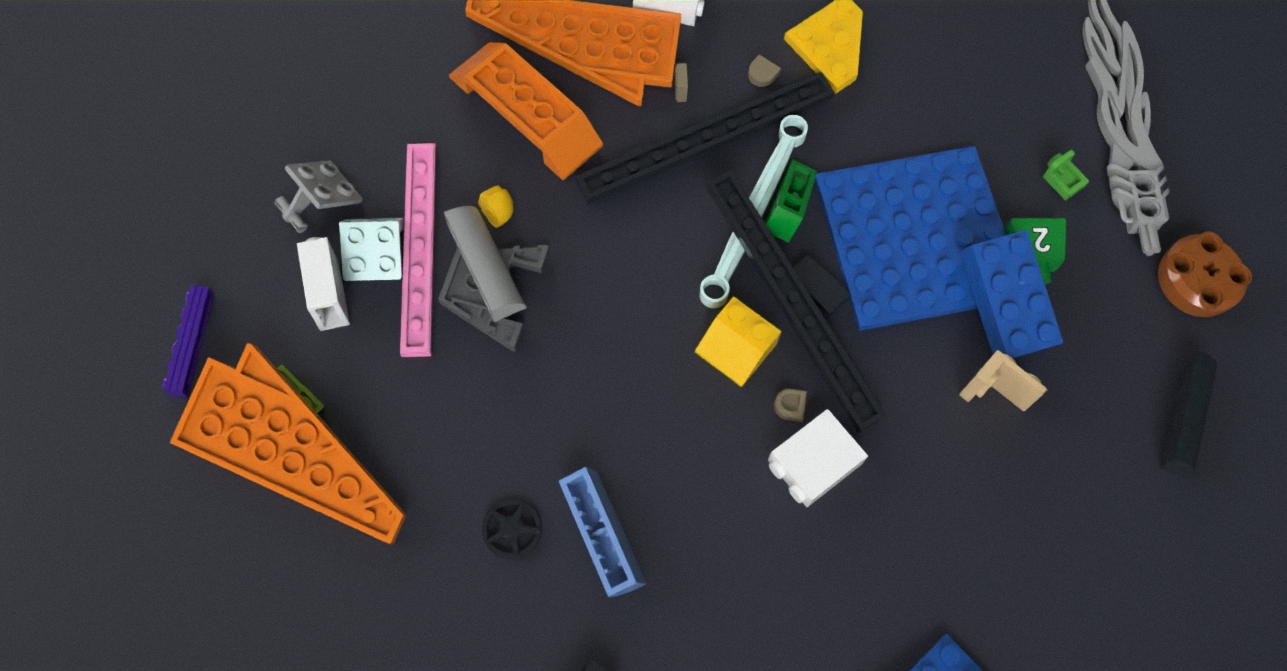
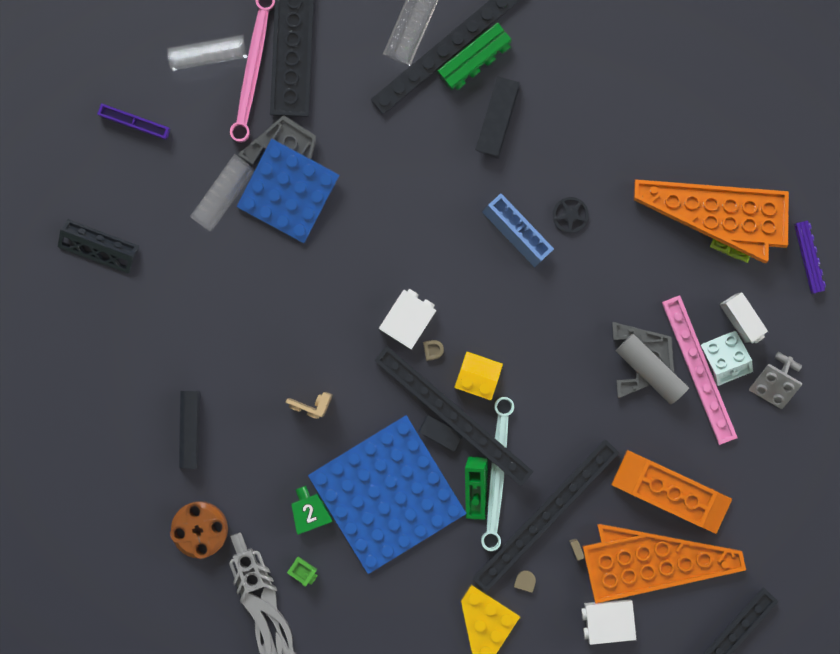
camera: 165 degrees right, 20 degrees up
(496, 205) = (660, 414): yellow piece -> none
(1011, 295) = (319, 464): blue brick -> none

